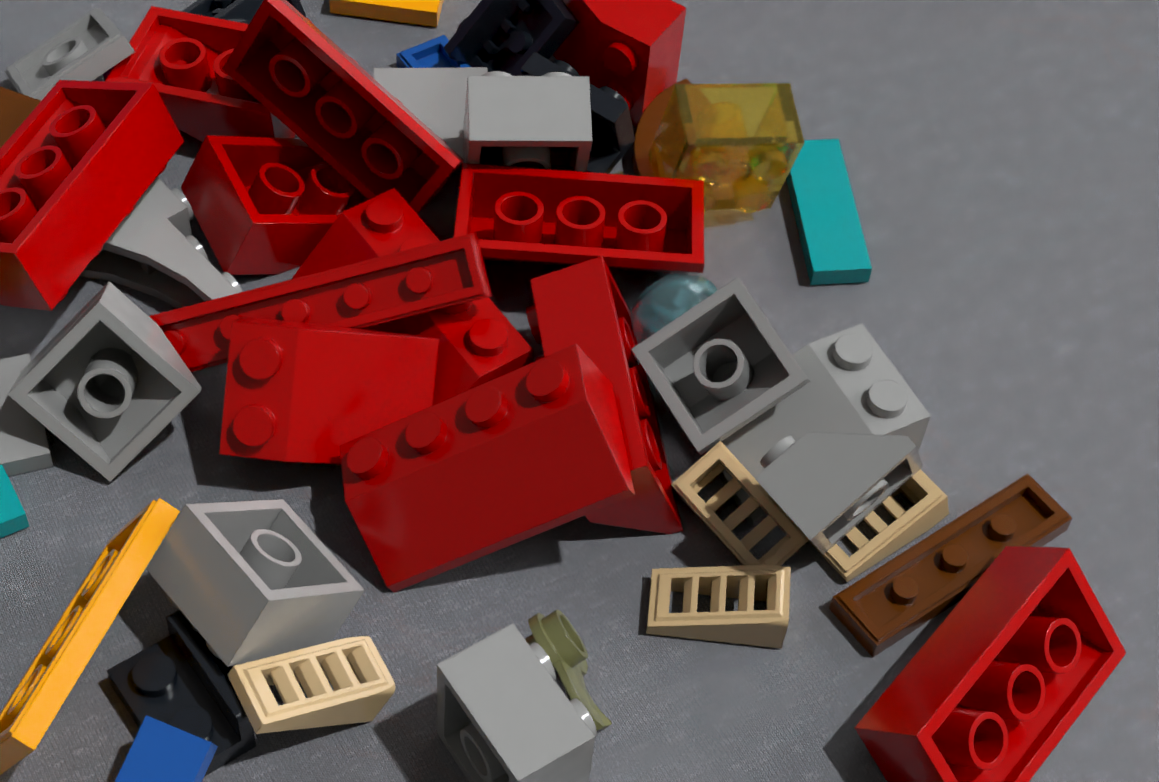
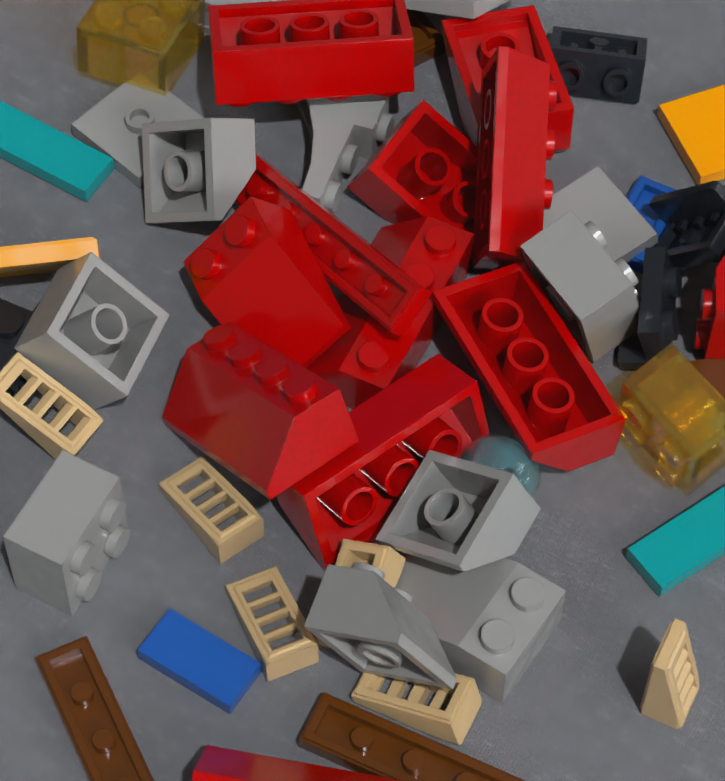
camera: 65 degrees right, 5 degrees up
(556, 566) = (232, 538): none -> tan slope
(567, 656) = (140, 546): olive plate -> none
(726, 696) = (199, 661): none -> blue tile
(984, 300) = (671, 678): none -> tan slope

